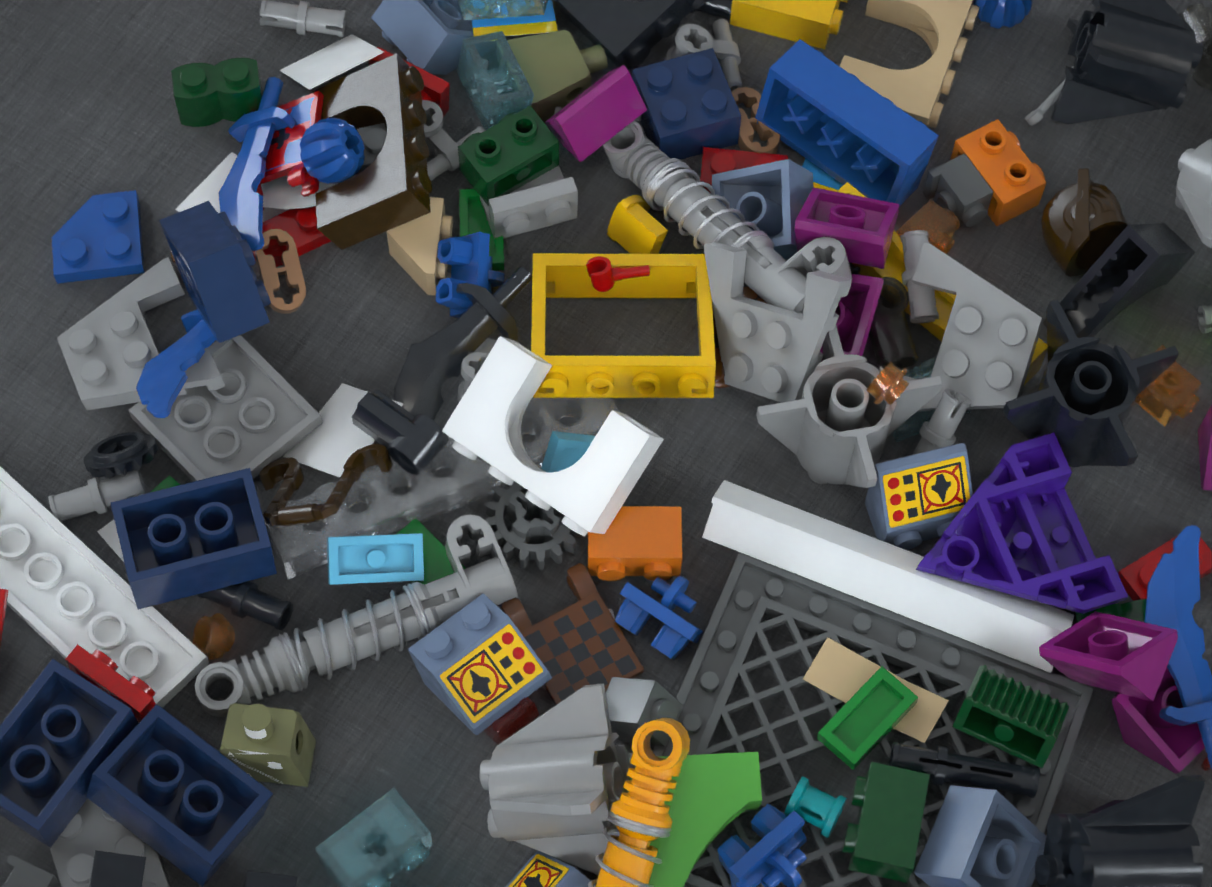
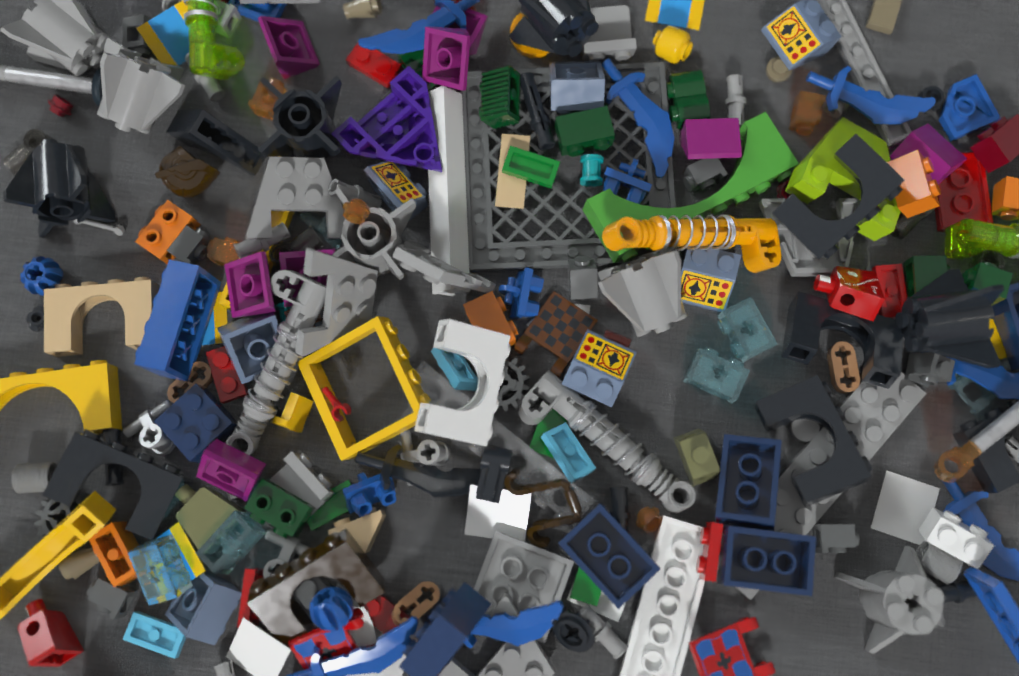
camera: 110 degrees left, 15 degrees up
(750, 471) = (416, 257): none -> light grey wing

